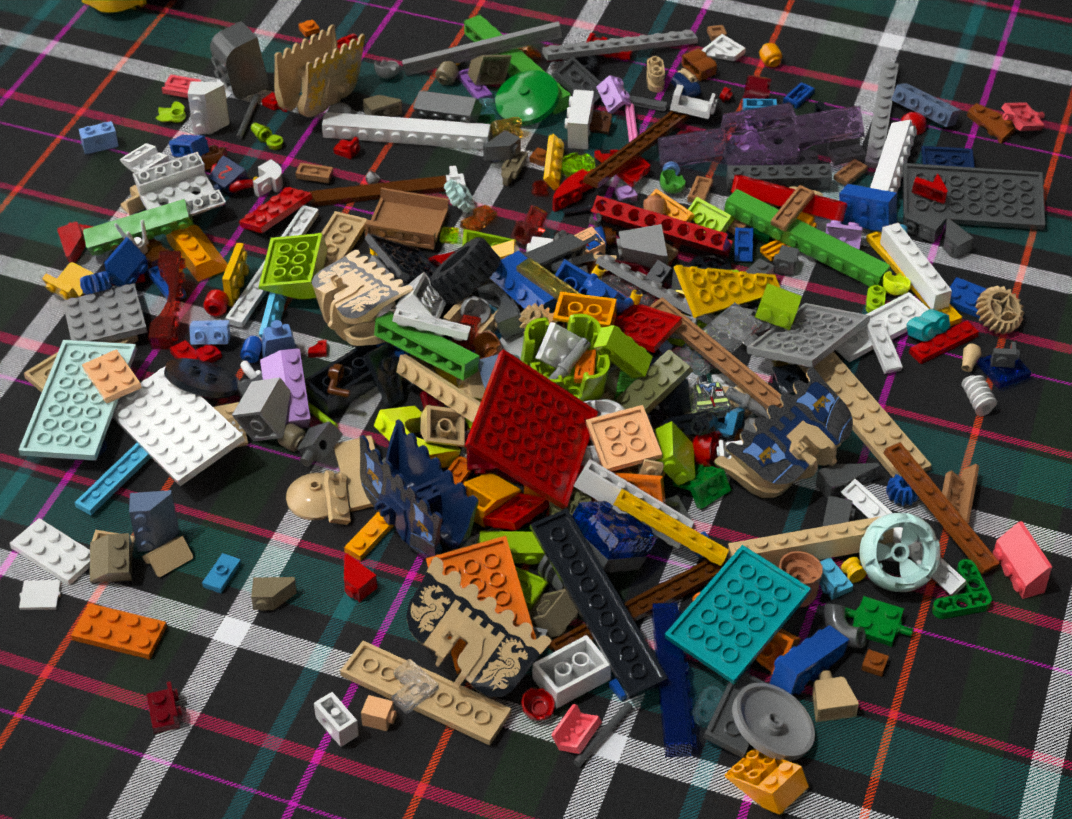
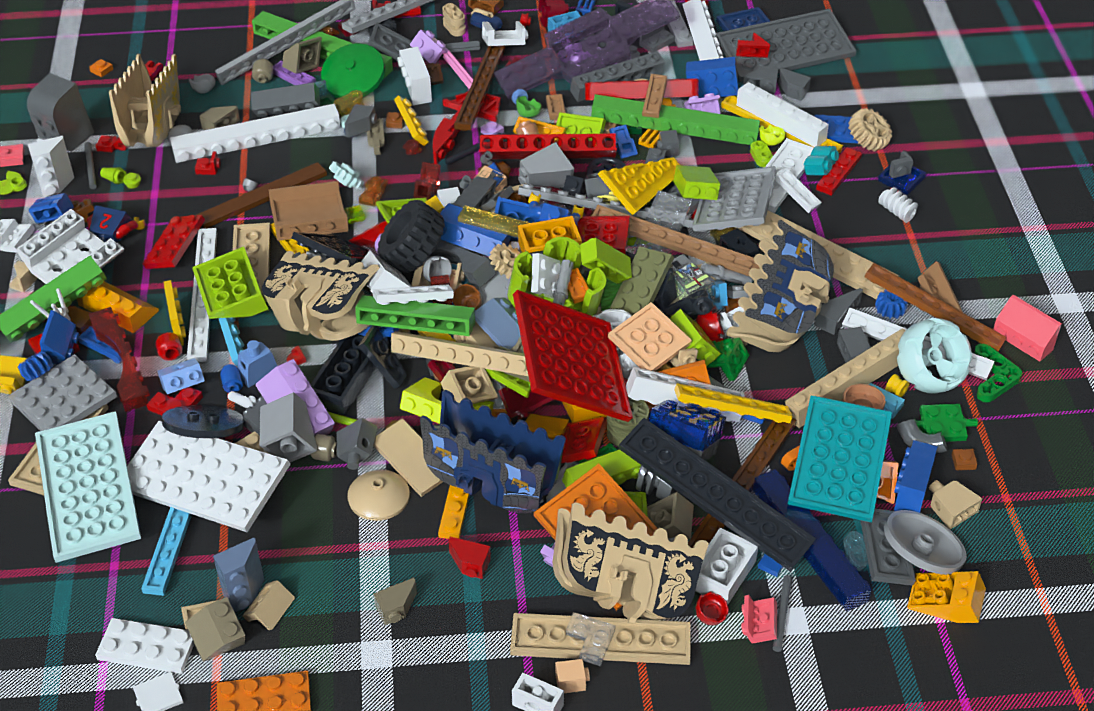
camera: 25 degrees left, 0 degrees up
(111, 376) = (110, 450): light nougat plate -> none
(221, 573) = (332, 602): dark azure plate -> none
(269, 178) = (149, 214): white brick -> none
(314, 172) = (190, 196): medium nougat plate -> none
(336, 375) = (338, 372): reddish brown plate -> none
(336, 497) = (404, 488): tan plate -> none
(455, 176) = (326, 161): white plate -> none
(581, 161) = (428, 116): clear neon green plate -> none
(850, 172) = (673, 54): medium nougat plate -> none
(971, 355) = (869, 175): tan cone -> none

